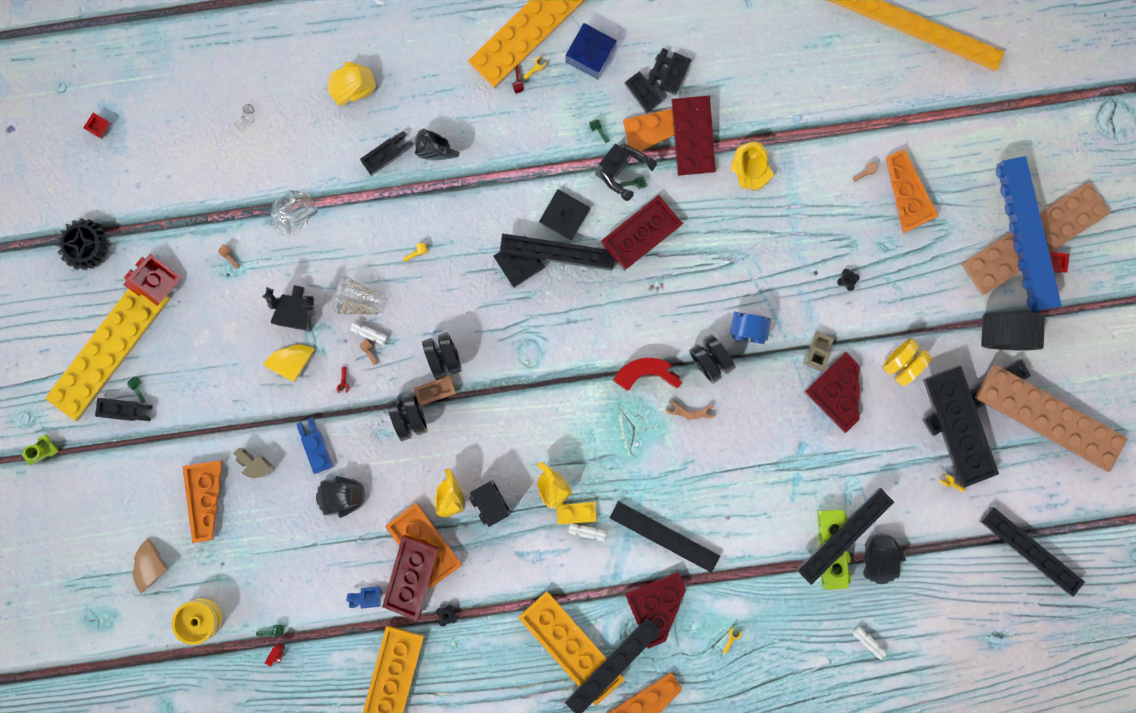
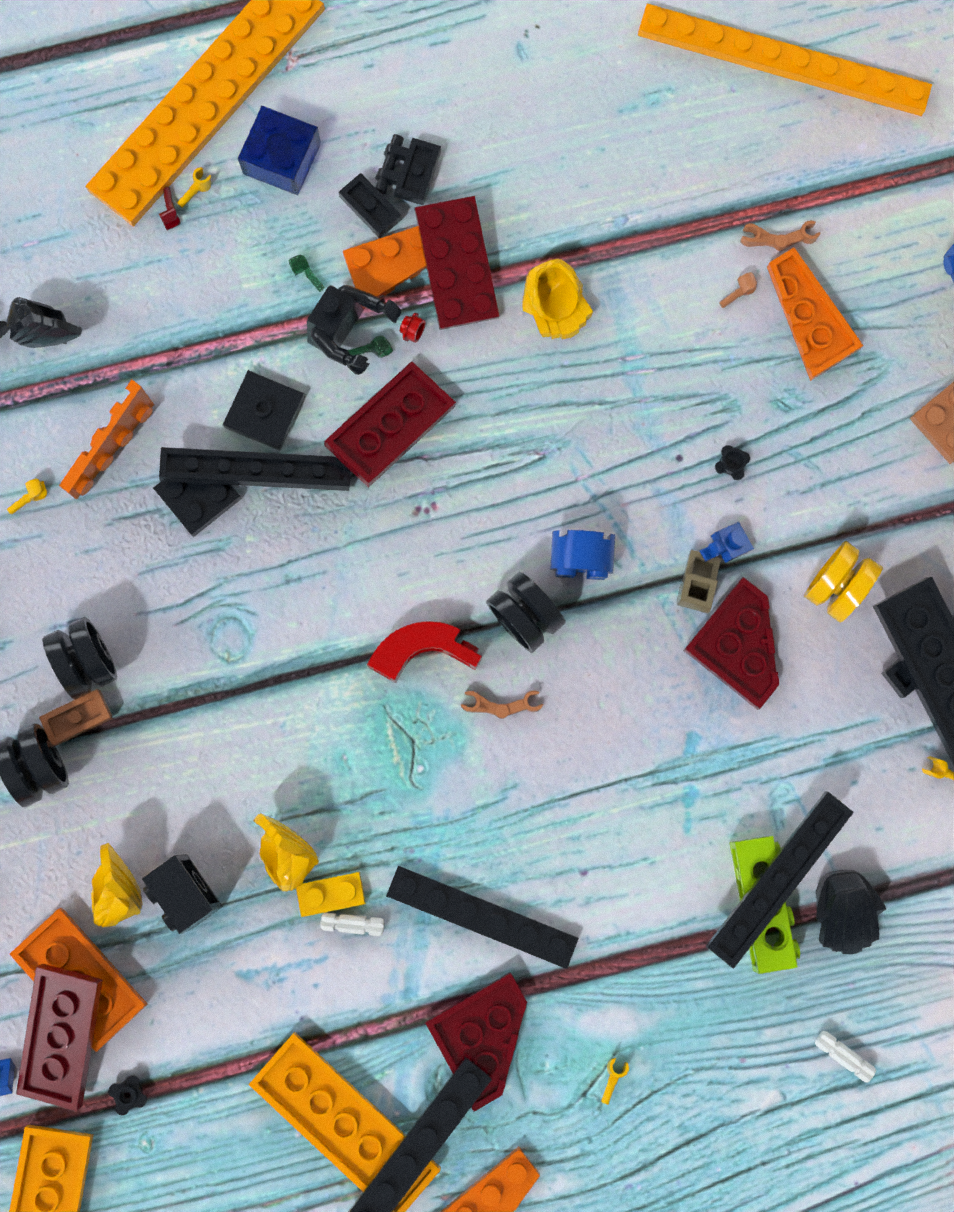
camera: 10 degrees left, 5 degrees down
(468, 224) = (107, 440): none -> orange wing
(661, 173) = (412, 328): none -> red plate
(840, 330) = (729, 543): none -> blue plate
(895, 143) = (779, 242): none -> nougat piece

